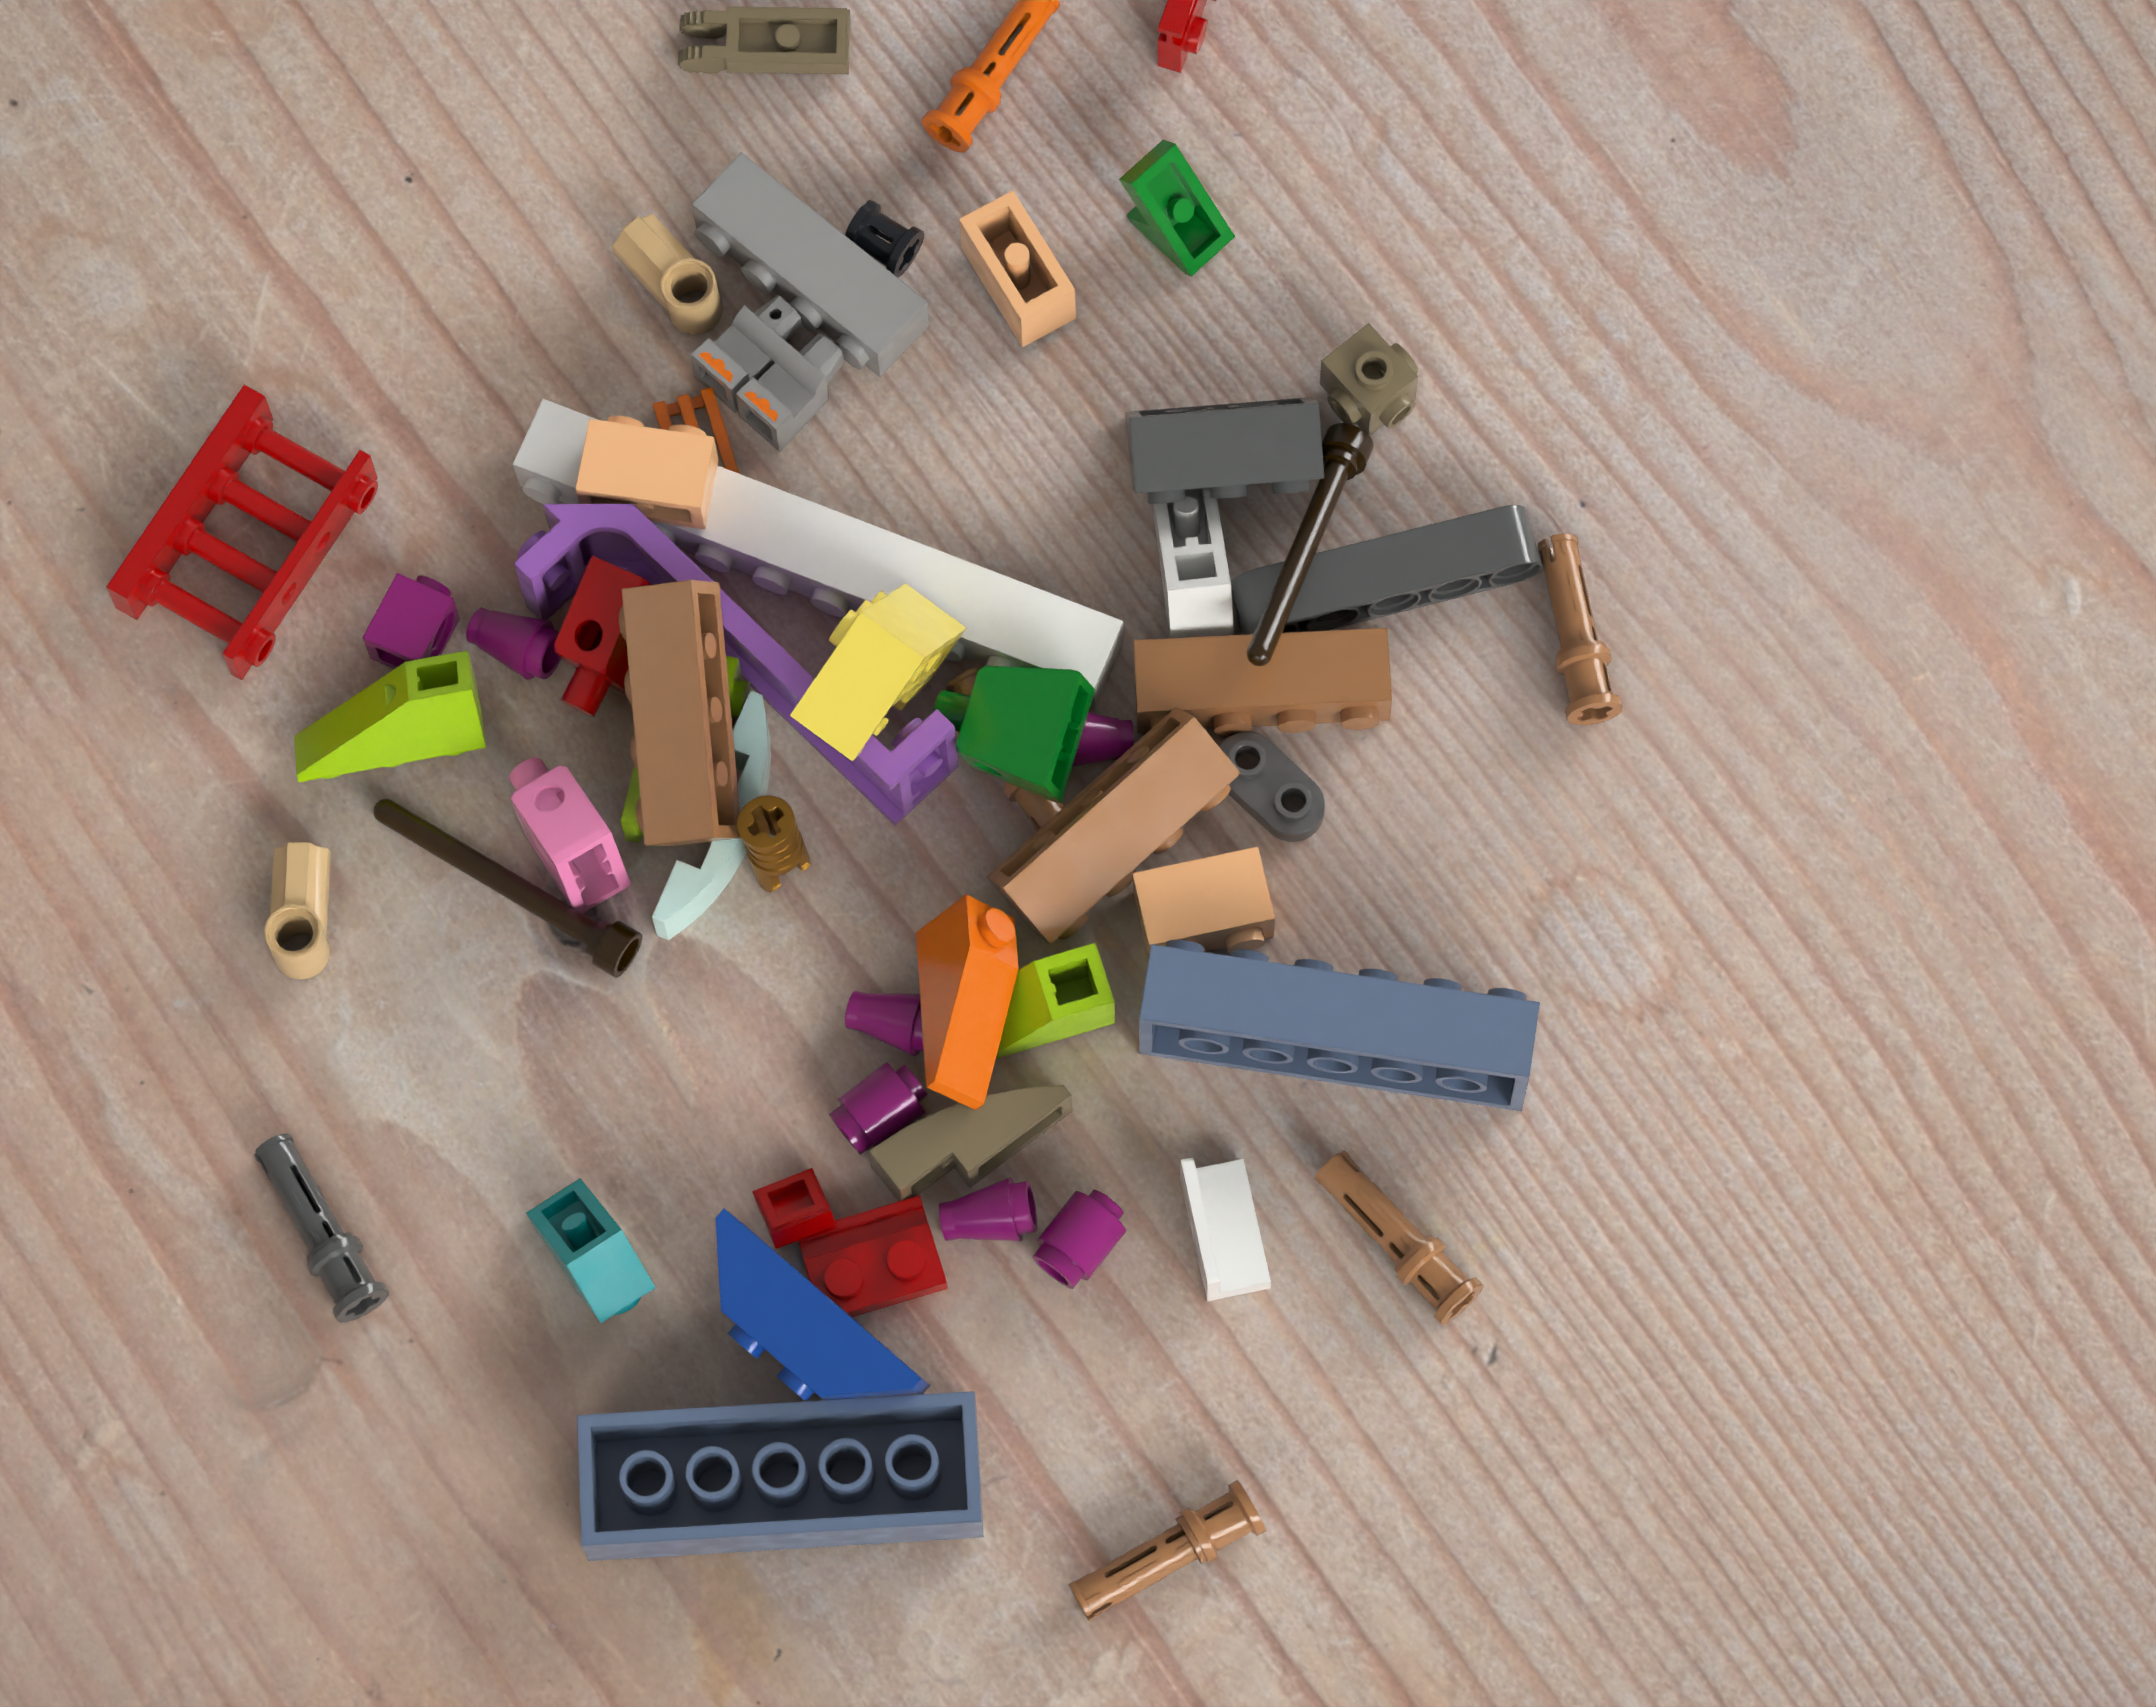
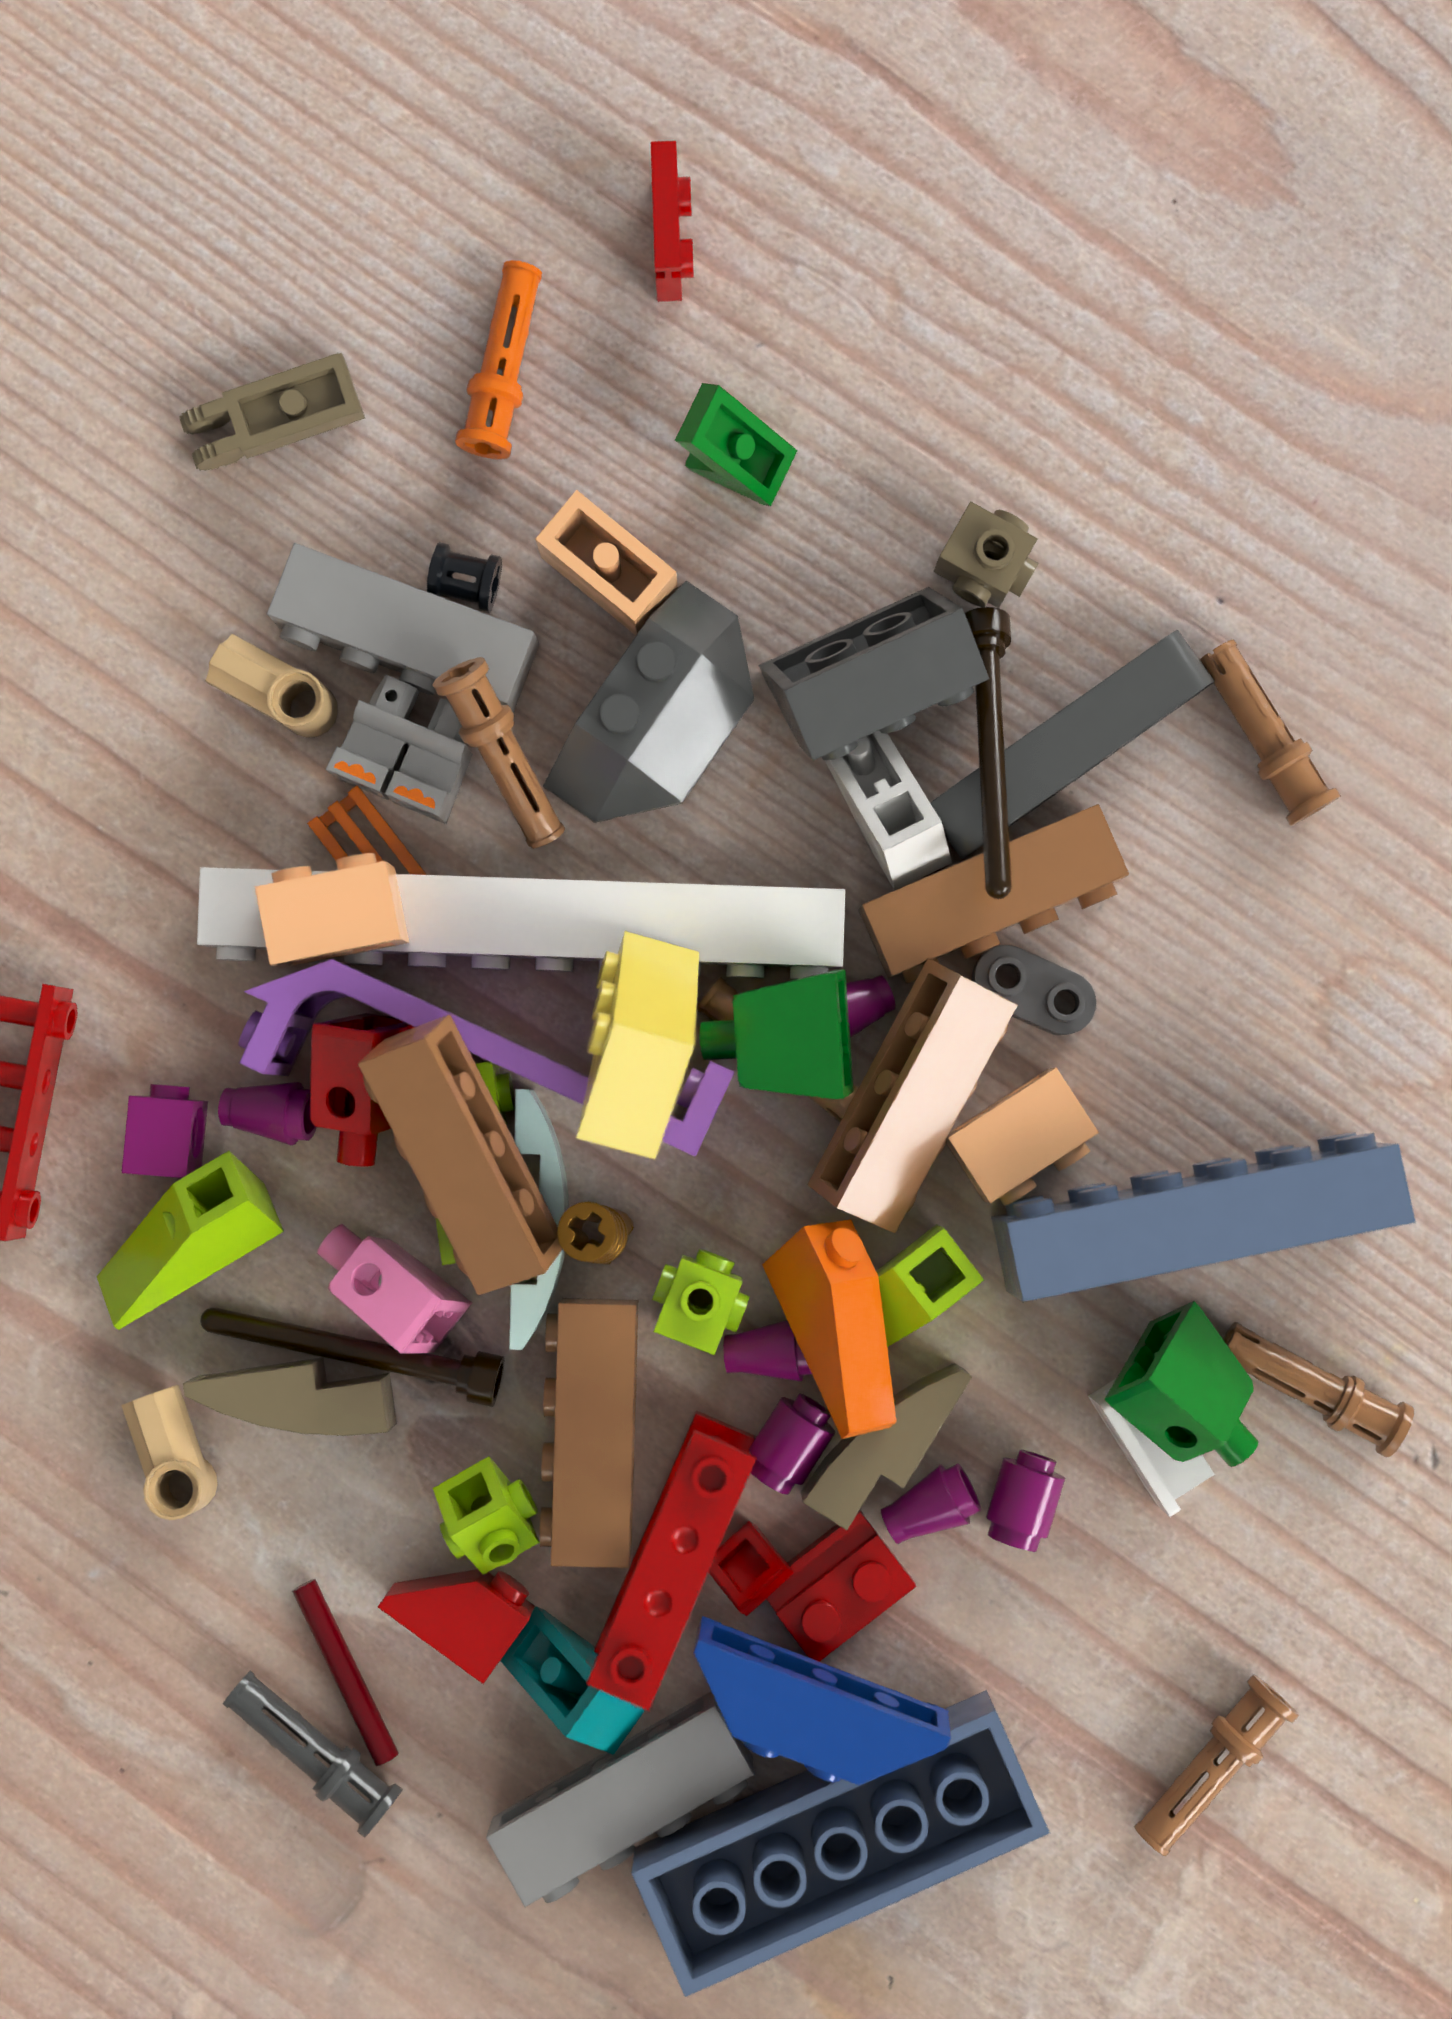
camera: 25 degrees left, 15 degrees up
(377, 1172) = (345, 1672): none -> dark red bar
(439, 902) = (299, 1398): none -> dark tan slope
(512, 1151) = (463, 1615): none -> red slope
(570, 1064) = (486, 1515): none -> lime brick
(590, 1371) = (619, 1800): none -> light grey brick
(698, 1030) = (593, 1432): none -> medium nougat brick
(729, 1147) = (672, 1560): none -> red fence
(844, 943) = (699, 1325): none -> lime brick
(852, 367) = (488, 727): none -> medium nougat pin
(1011, 415) = (658, 712): none -> dark grey wedge
(1268, 1181) = (1186, 1389): none -> green torso

